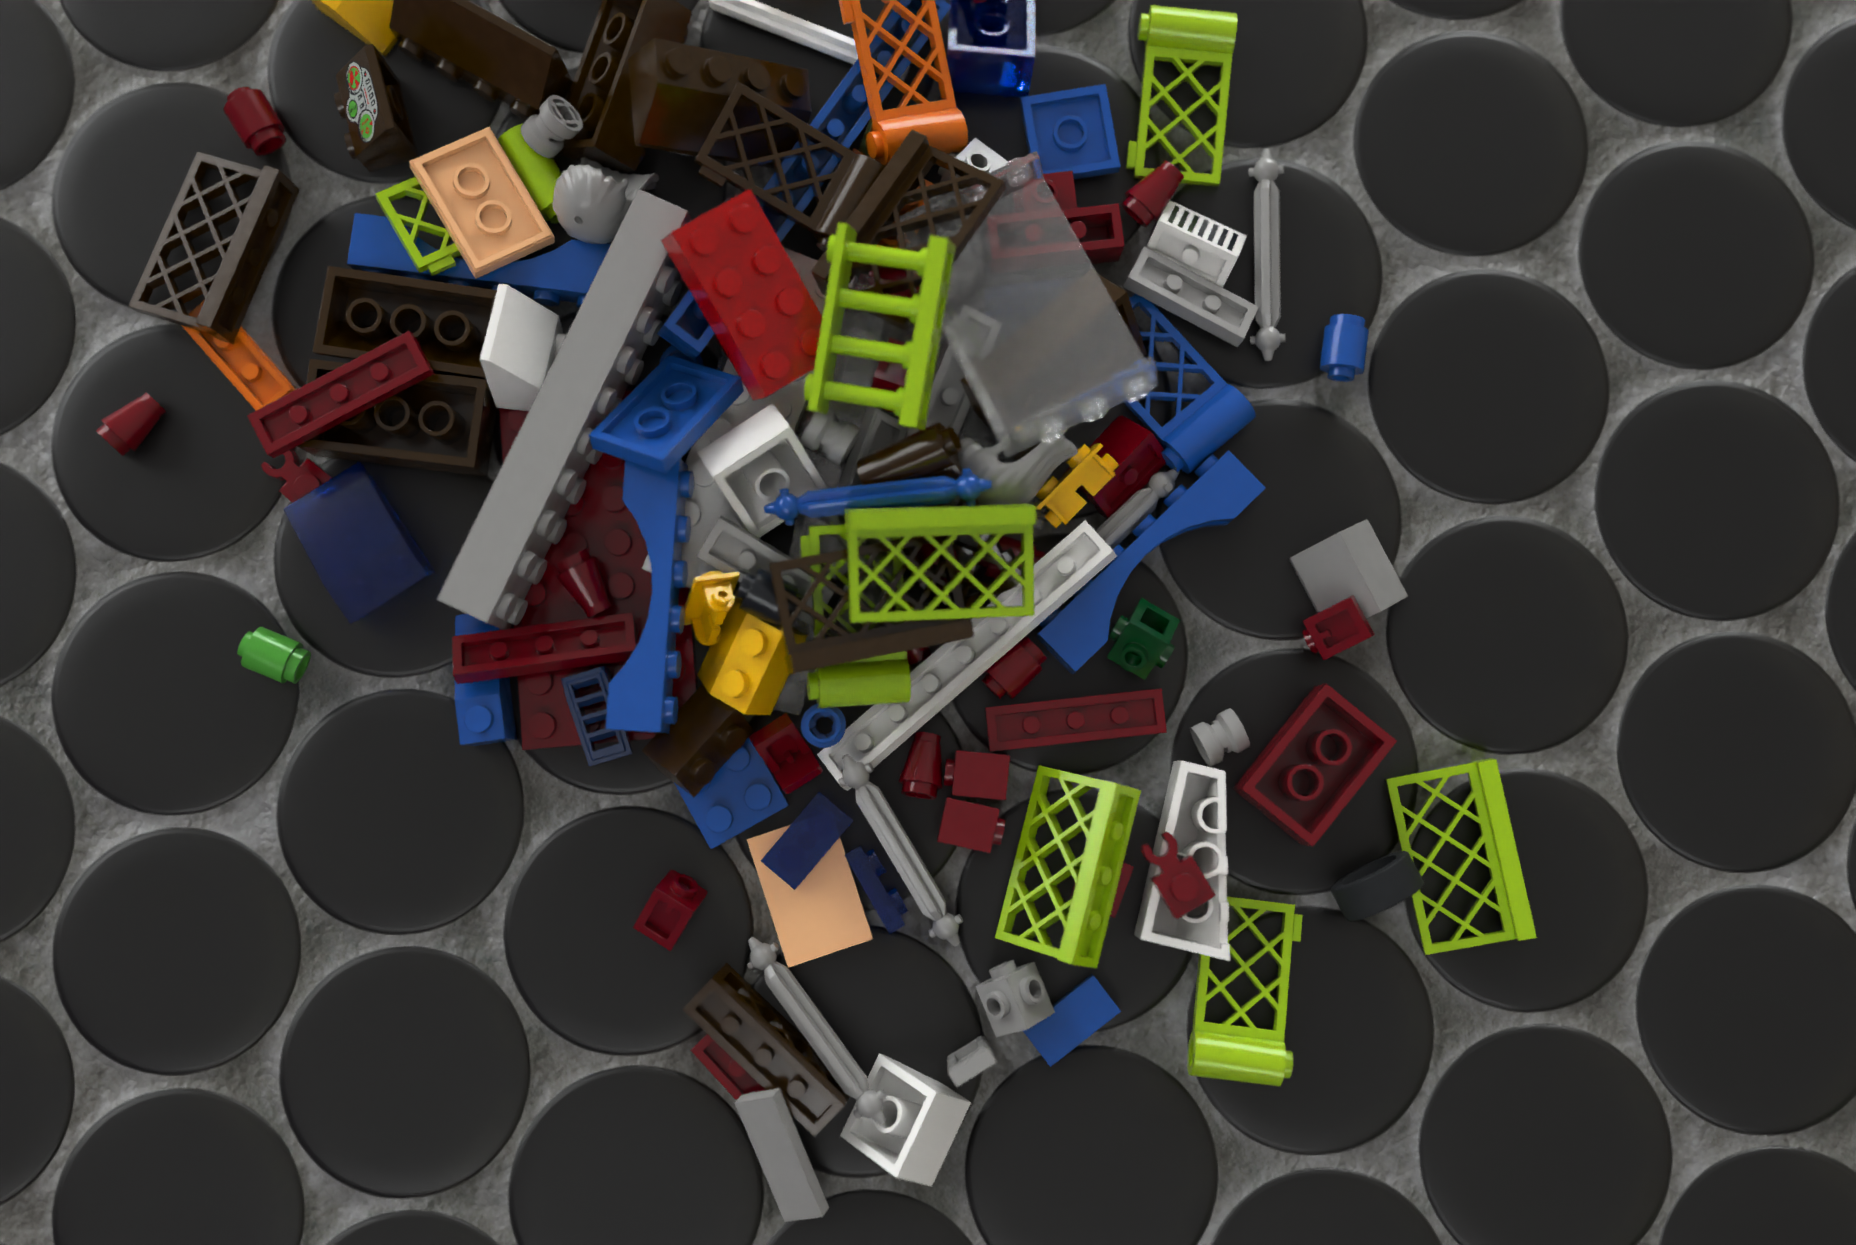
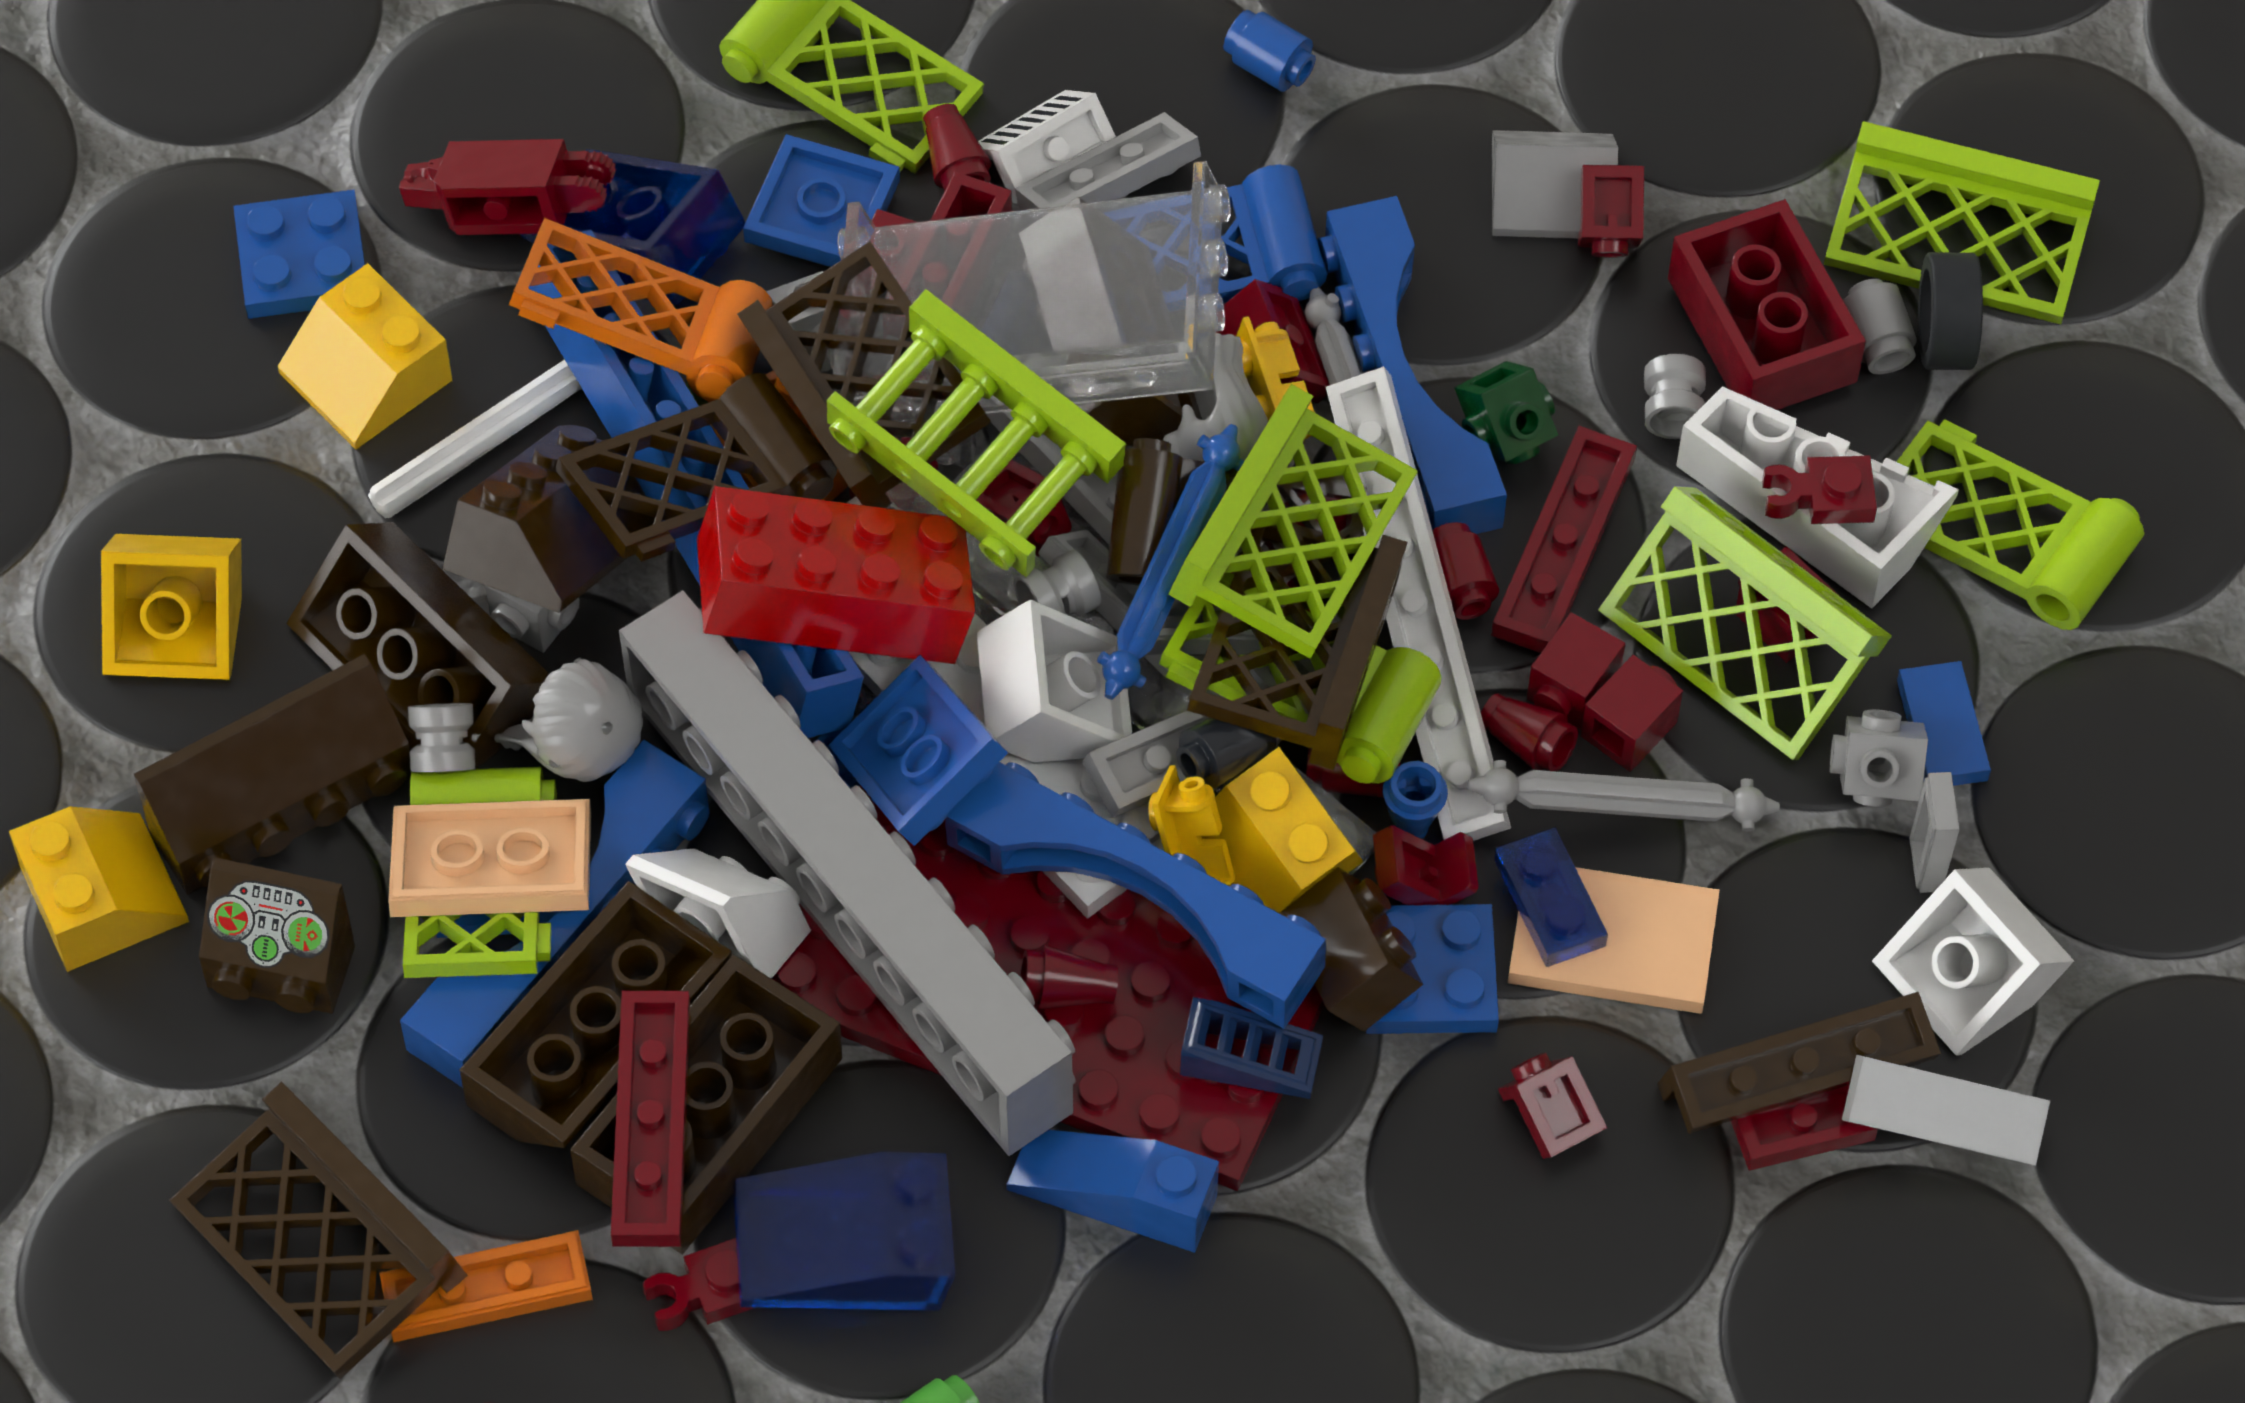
camera: 60 degrees left, 25 degrees down
(255, 120) = (178, 1103): dark red brick -> none
(543, 648) = (1126, 1059): dark red plate -> none
(816, 1030) = (1800, 1003): light grey wheel -> none
(887, 903) = (1658, 853): clear blue plate -> none
(1267, 254) = (1102, 76): light grey wheel -> none
(1349, 840) = (1884, 325): none -> light grey brick

